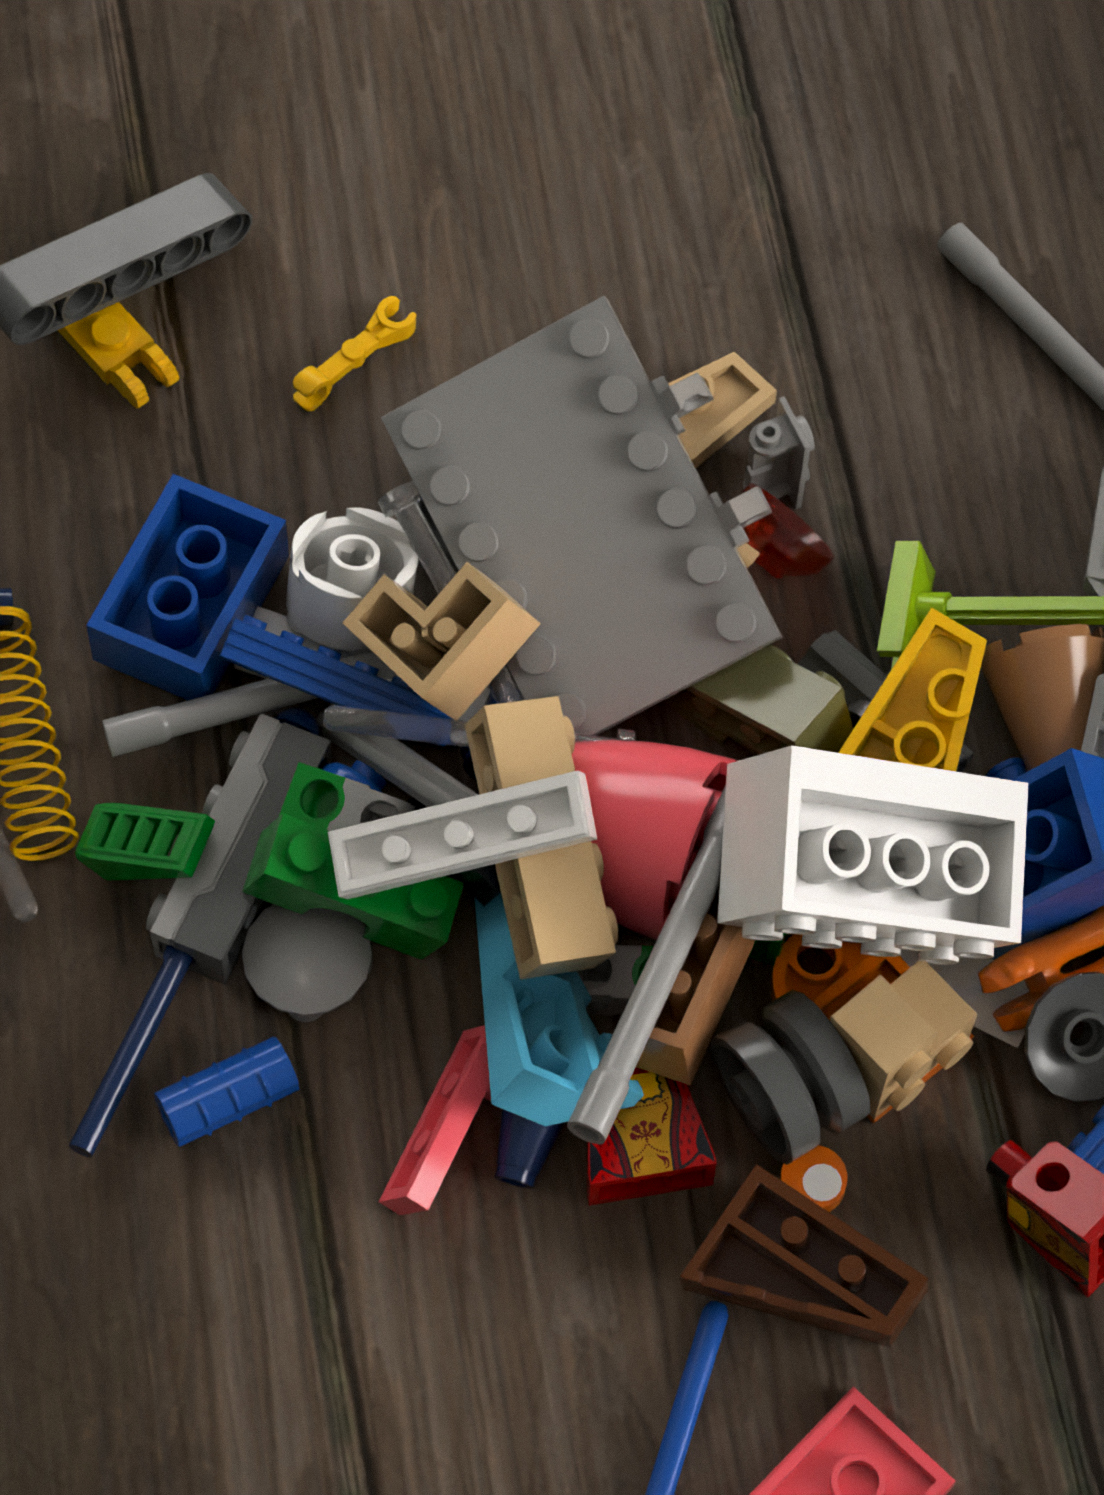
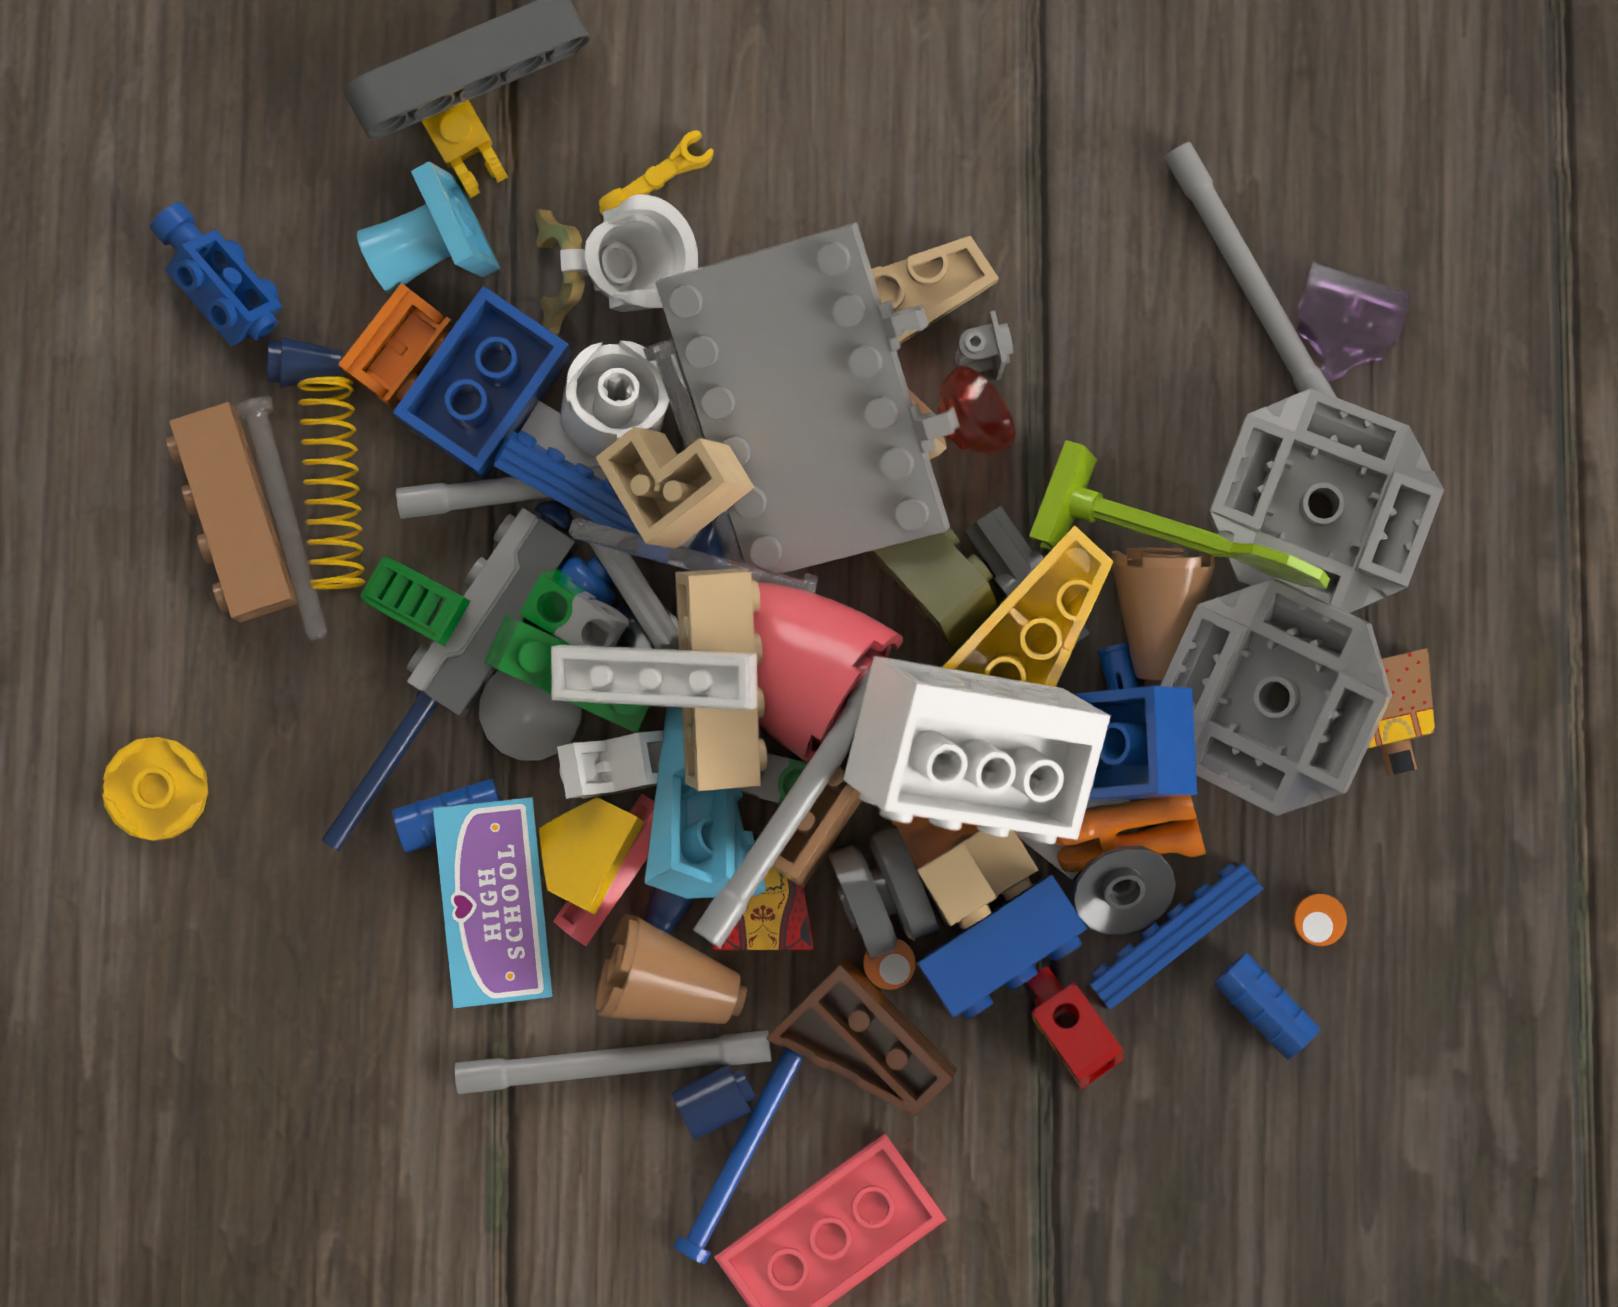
camera: 10 degrees right, 20 degrees up
(73, 570) = (396, 346): none -> orange hinge
(96, 439) = (428, 234): none -> medium azure plant
(299, 1185) = (492, 902): none -> sticker
(329, 429) = (622, 256): none -> white helmet
(345, 1397) = (502, 1073): none -> light grey piece
(410, 1094) = (586, 851): none -> yellow slope
(422, 997) = (610, 765): none -> white brick
(535, 1235) = (664, 979): none -> medium nougat cone
(626, 1380) = (714, 1100): none -> dark blue brick
(950, 1120) = (1002, 948): none -> blue brick

